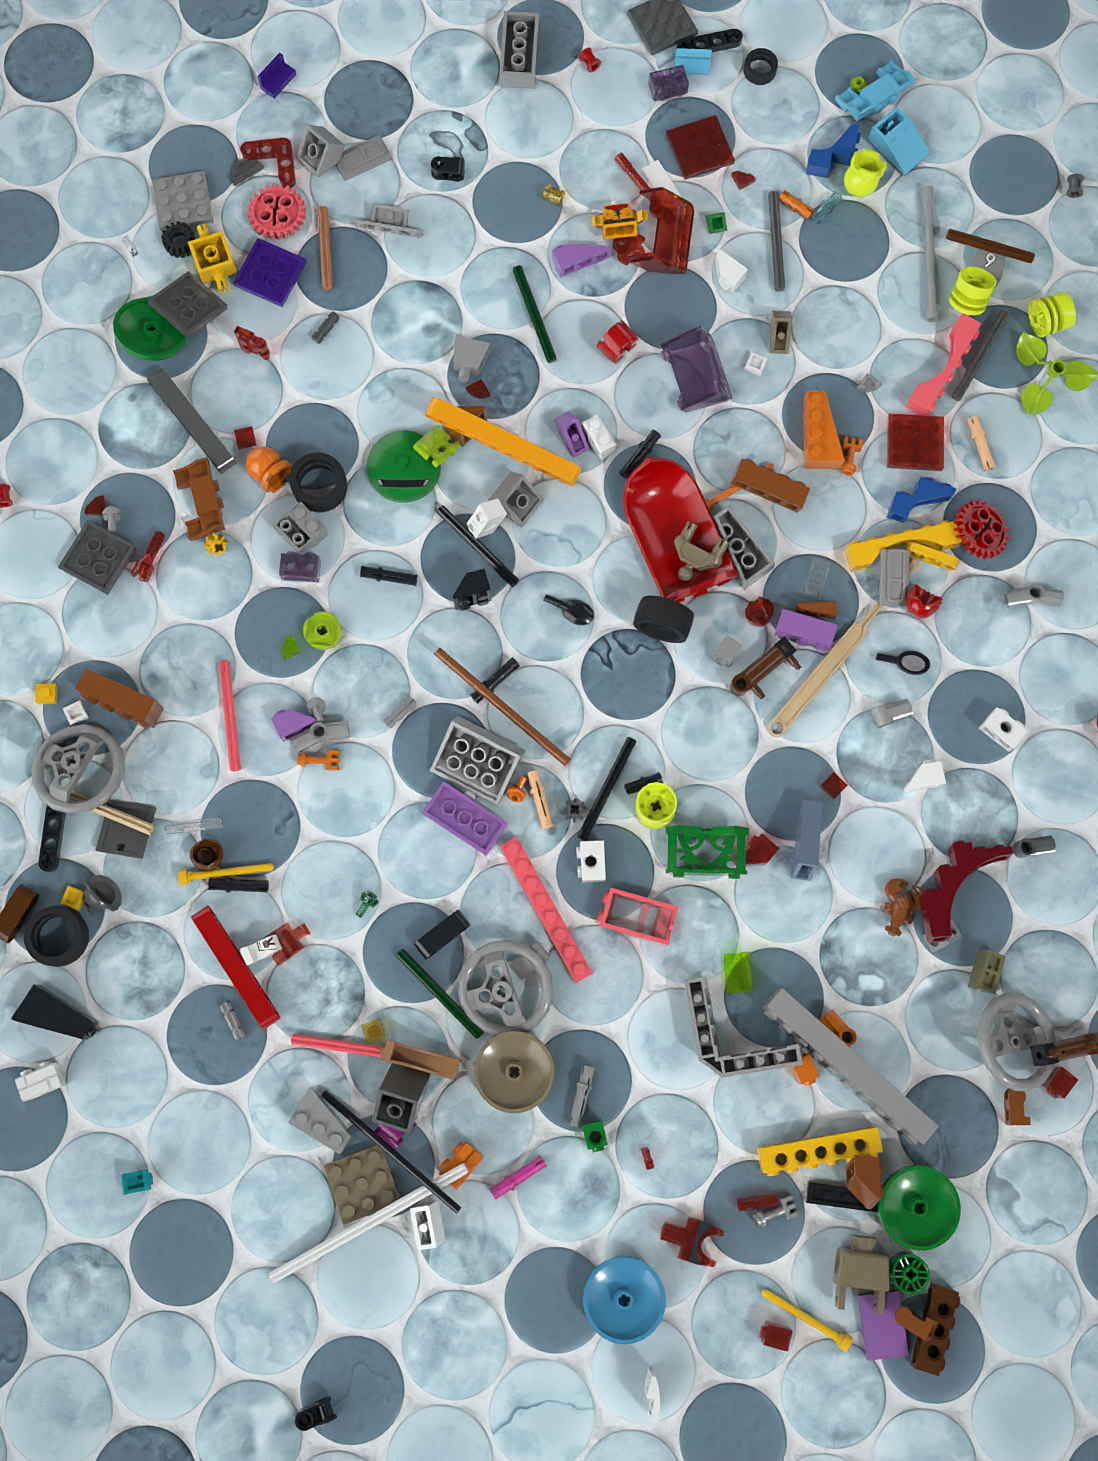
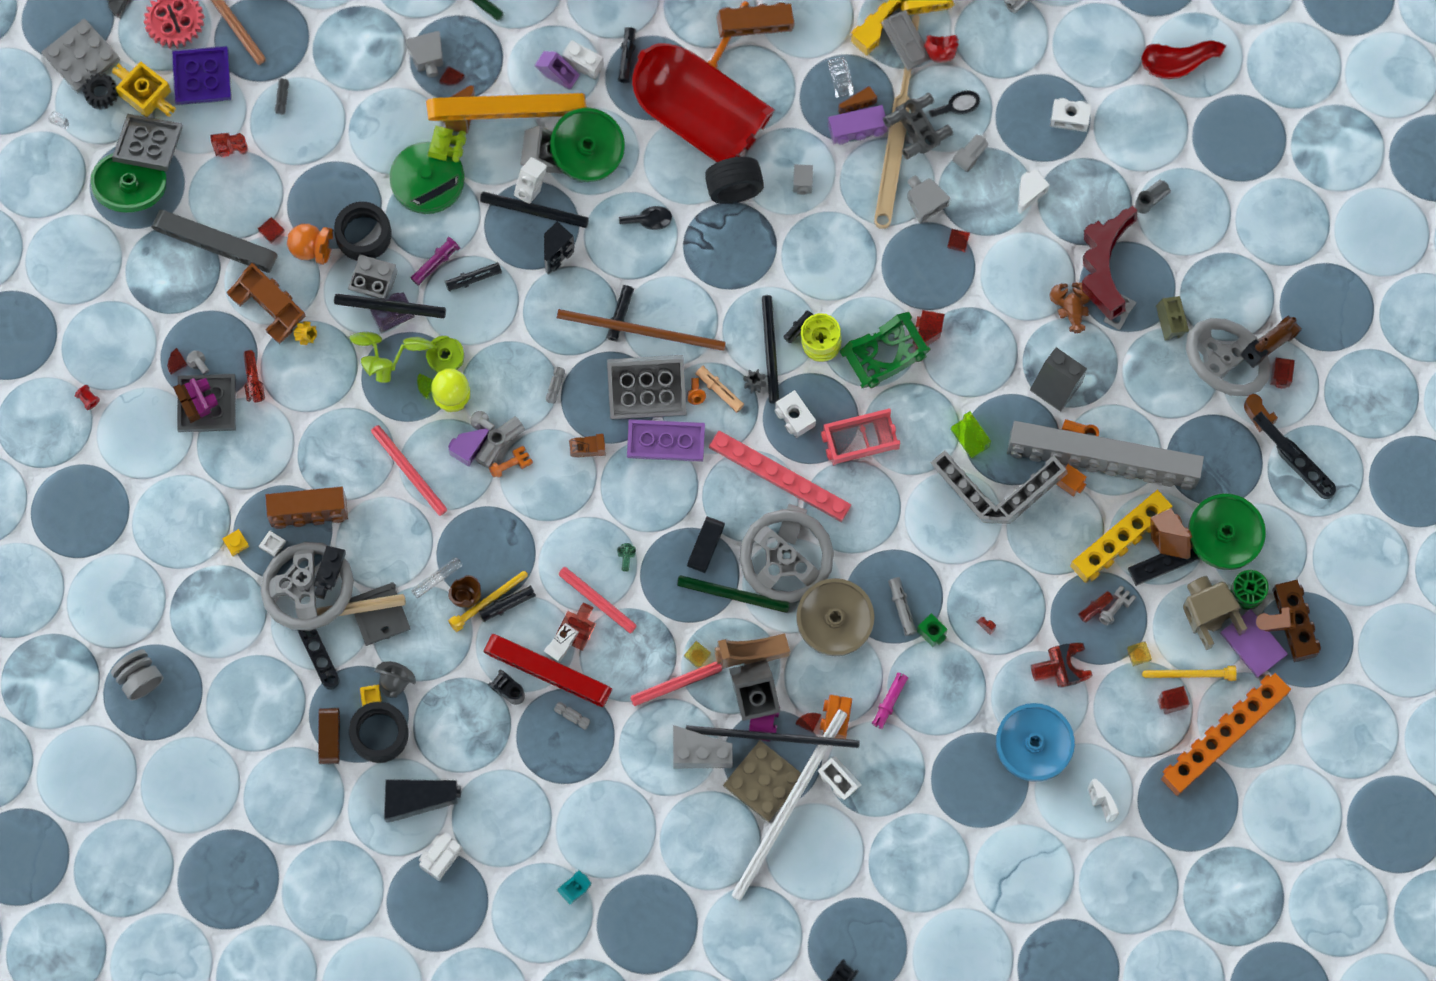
camera: 30 degrees left, 5 degrees down
(83, 549) = (192, 399): none -> magenta hips
(100, 767) = (328, 570): none -> black hinge
(190, 958) = (505, 685): none -> black piece
(259, 613) = (384, 366): none -> lime plant
(298, 561) = (390, 306): none -> black axle
(306, 665) = (450, 390): none -> neon yellow tile
(318, 928) = (597, 600): none -> coral axle
(372, 541) = (441, 255): none -> magenta pin
(394, 784) = (587, 446): none -> dark orange leg
(435, 1152) = (808, 721): none -> clear red tile
(556, 514) = (587, 144): none -> green dish
(694, 556) = (728, 114): dark tan connector -> none
(745, 551) = (765, 84): light grey wedge -> none
(759, 612) = (810, 130): clear red hair -> none
(764, 665) = (838, 180): reddish brown piece -> none
(770, 1271) = (1139, 653): none -> clear yellow plate
(807, 840) = (963, 295): sand blue slope -> none
(827, 731) = (926, 198): none -> light grey torso
(847, 970) = (1058, 379): none -> dark grey slope
(858, 661) = (917, 126): none -> dark grey piece
(877, 1389) = (1278, 691): none -> orange brick
(1020, 1150) = (1276, 436): none -> black pin
(1032, 1186) = (1309, 467): none -> black beam

